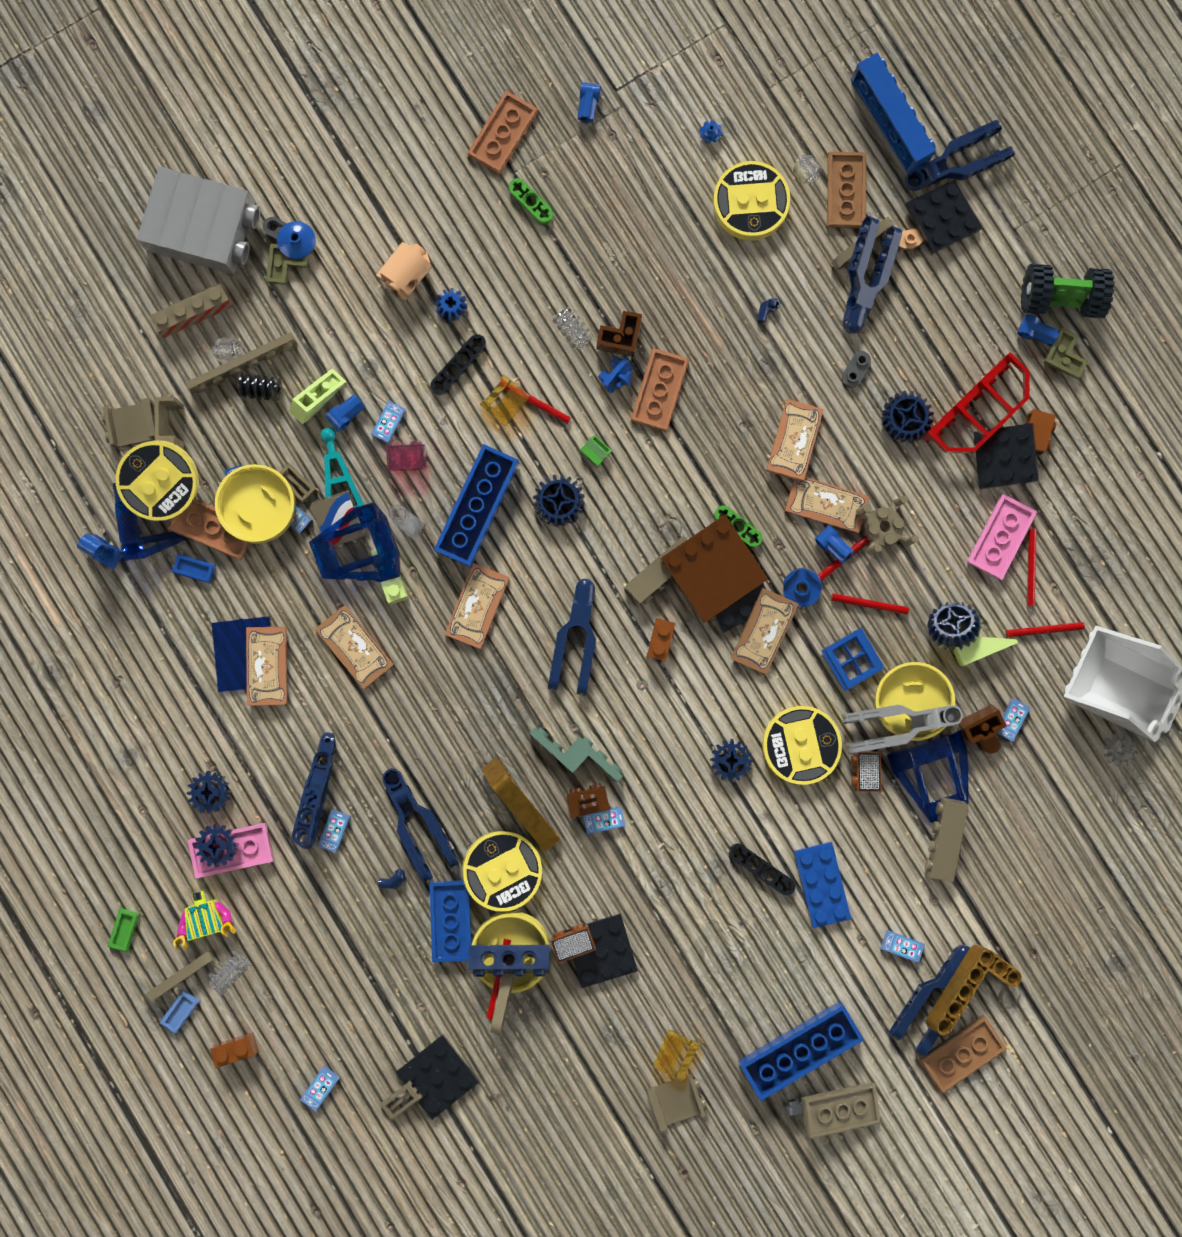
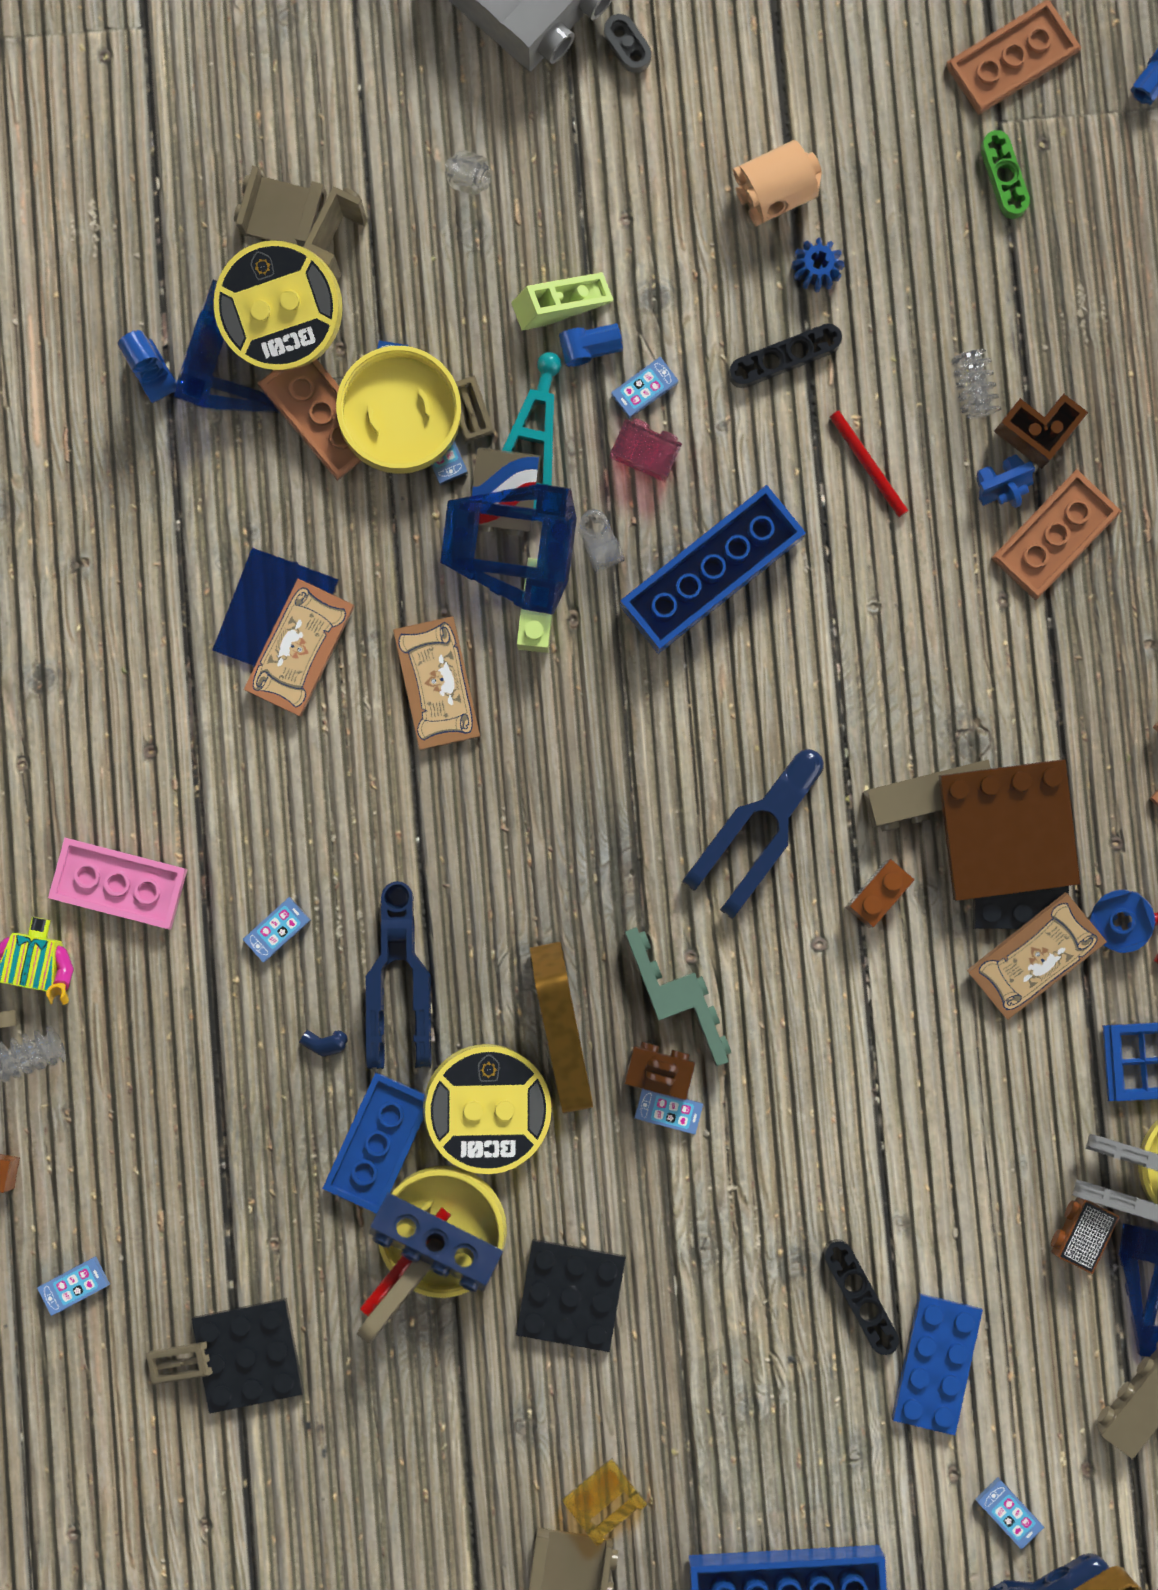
camera: 30 degrees right, 0 degrees up
(191, 310) = (445, 92): dark tan brick -> none
(193, 568) = (265, 458): blue tile -> none
(208, 784) = (123, 795): dark blue gear -> none
(216, 853) = (96, 877): dark blue gear -> none
(240, 363) = (467, 201): dark tan plate -> none
(259, 388) = (486, 249): black piece -> none
(278, 265) = (608, 81): olive plate -> none
(302, 246) = (639, 77): blue dish -> none
(315, 786) = (282, 853): dark blue piece -> none
(477, 606) = (640, 712): tile -> none
(509, 404) = (829, 448): clear yellow plate -> none
(549, 499) = (847, 598): dark blue gear -> none
(572, 943) = (537, 1264): brick -> none
(595, 451) = (920, 576): bright green piece -> none
(739, 760) = (887, 1130): dark blue gear -> none
(746, 539) = (1085, 790): bright green beam -> none
(801, 745) = (1008, 1147): piece -> none

